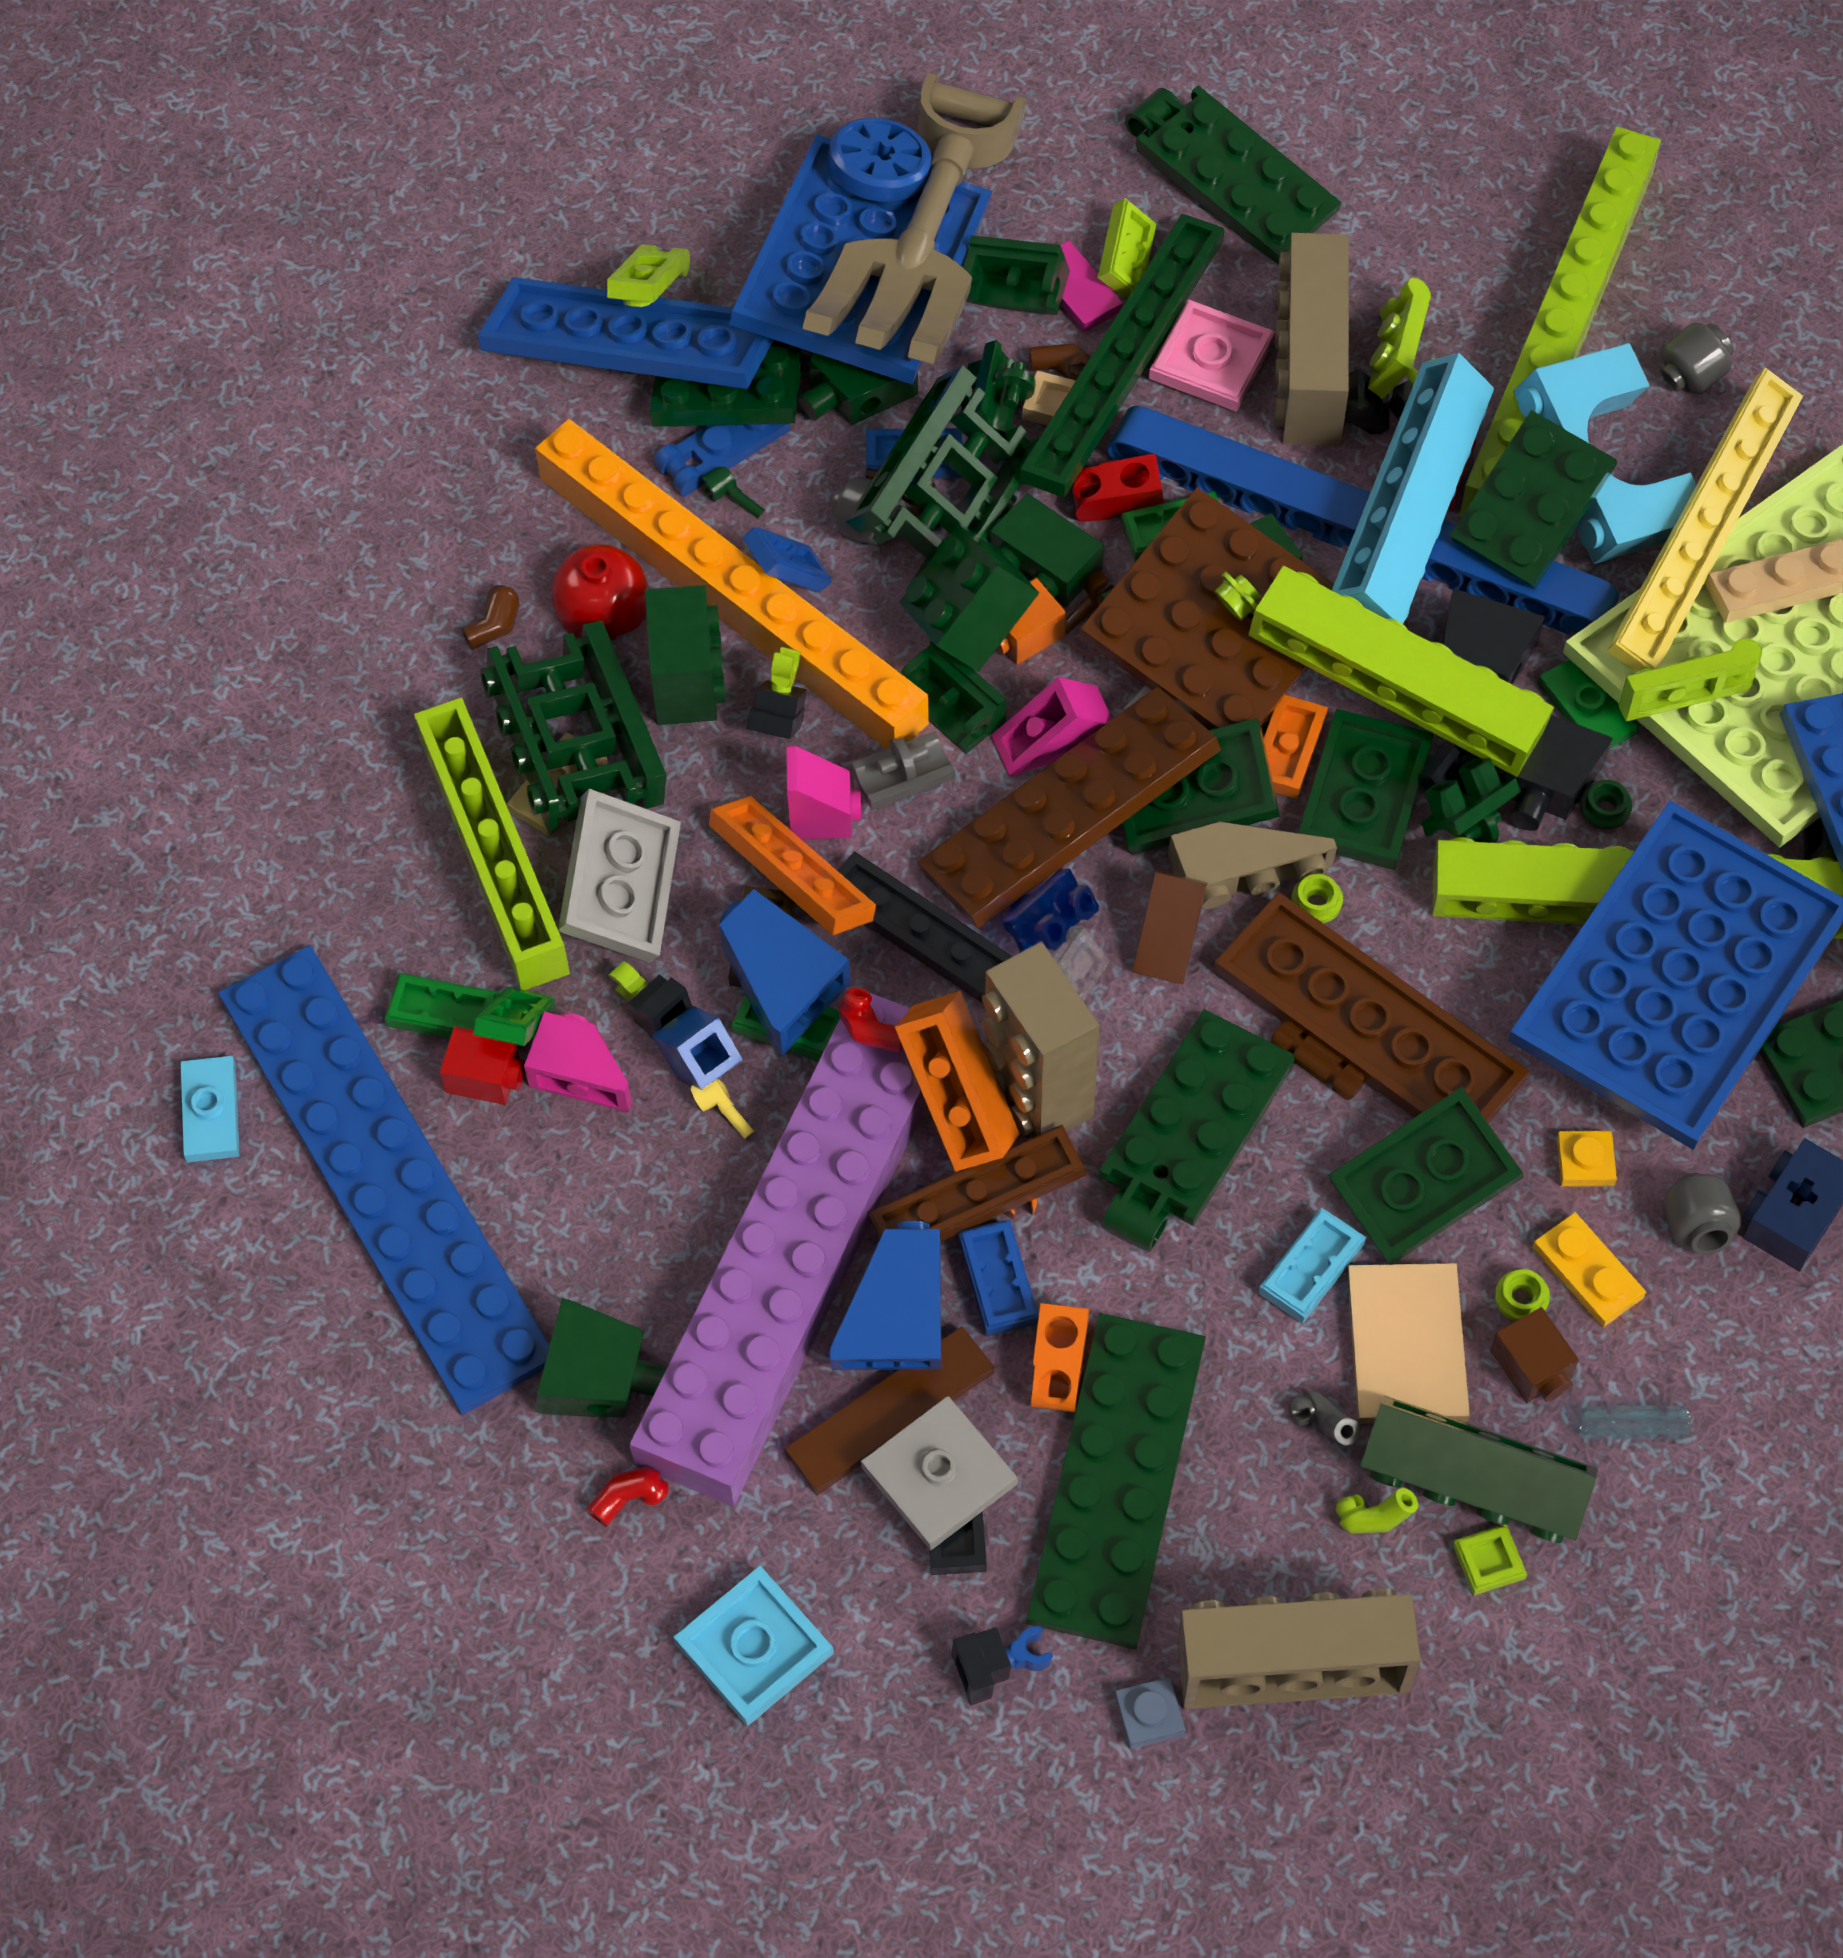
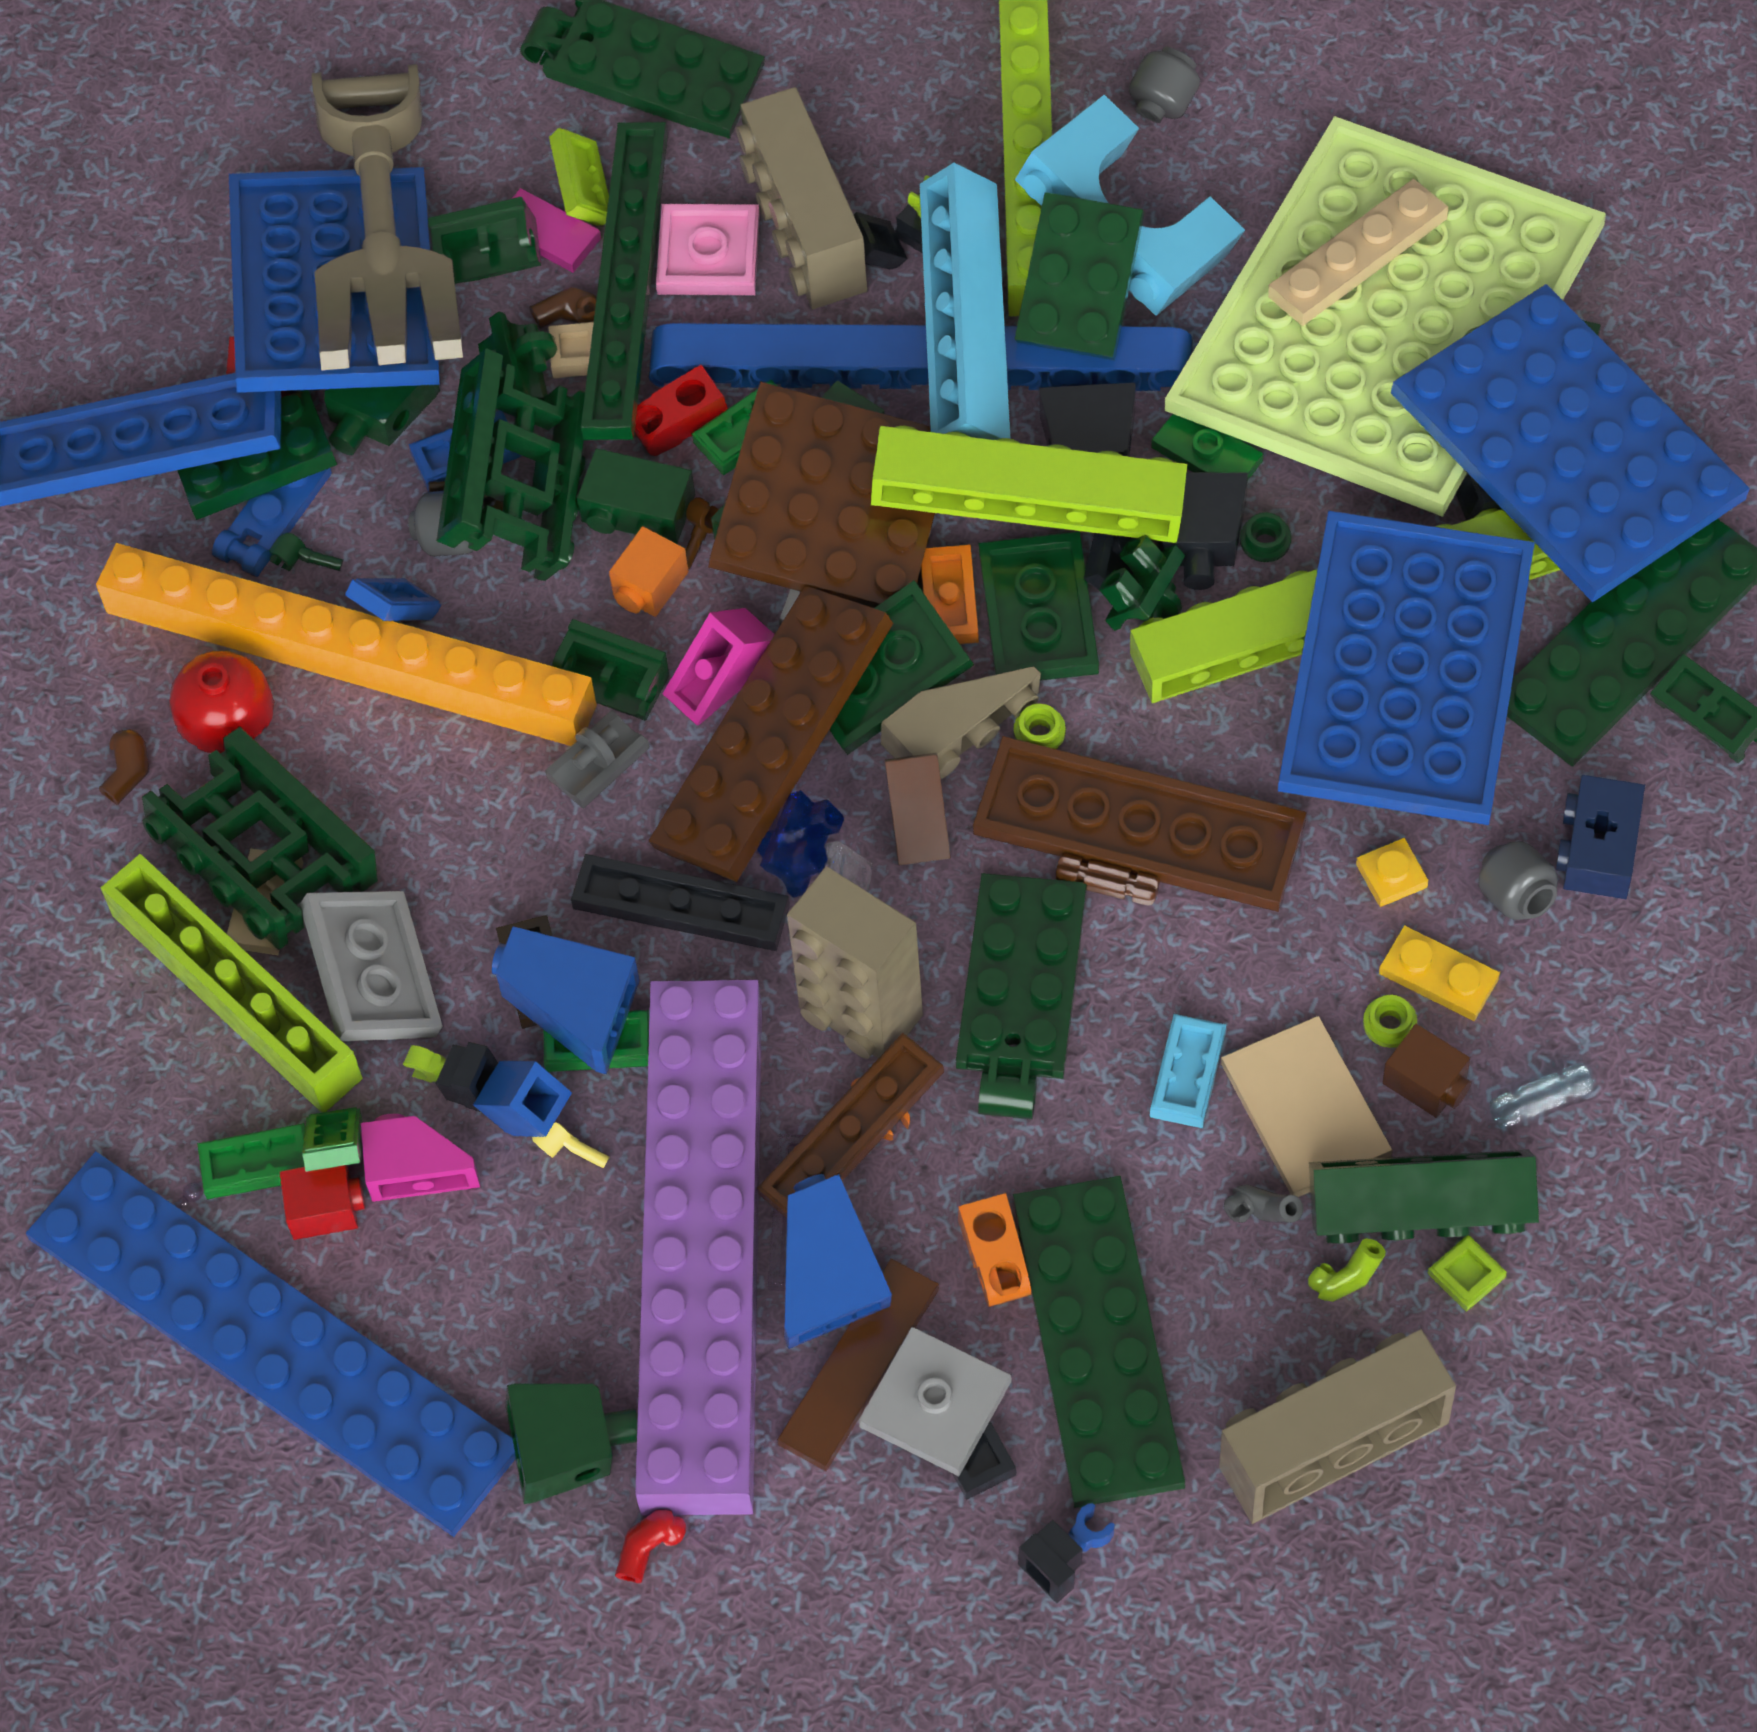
camera: 20 degrees left, 0 degrees up
(209, 1109) = (70, 1348): medium azure plate -> none
(647, 274) = (126, 373): lime plate -> none
(684, 654) = (336, 729): dark green brick -> none
(753, 1645) = (832, 1633): medium azure plate -> none
(777, 703) = (447, 739): black piece -> none
(792, 865) = (533, 890): orange plate -> none
(820, 797) = (529, 816): dark pink slope -> none
(863, 1023) = (679, 1013): red arm -> none
(879, 159) = (304, 176): blue wheel -> none
(957, 1081) = (790, 1030): orange brick -> none
(968, 597) = (589, 569): dark green brick -> none
(998, 1277) = (904, 1200): blue plate -> none
(1150, 1713) = (1224, 1540): sand blue plate -> none
(1237, 595) = (847, 471): lime plate -> none
(1399, 336) = (880, 166): lime plate -> none
(1425, 1176) = (1256, 946): dark green plate -> none
(1690, 681) = (1298, 392): lime plate -> none
(1705, 523) = (1244, 240): light yellow tile -> none

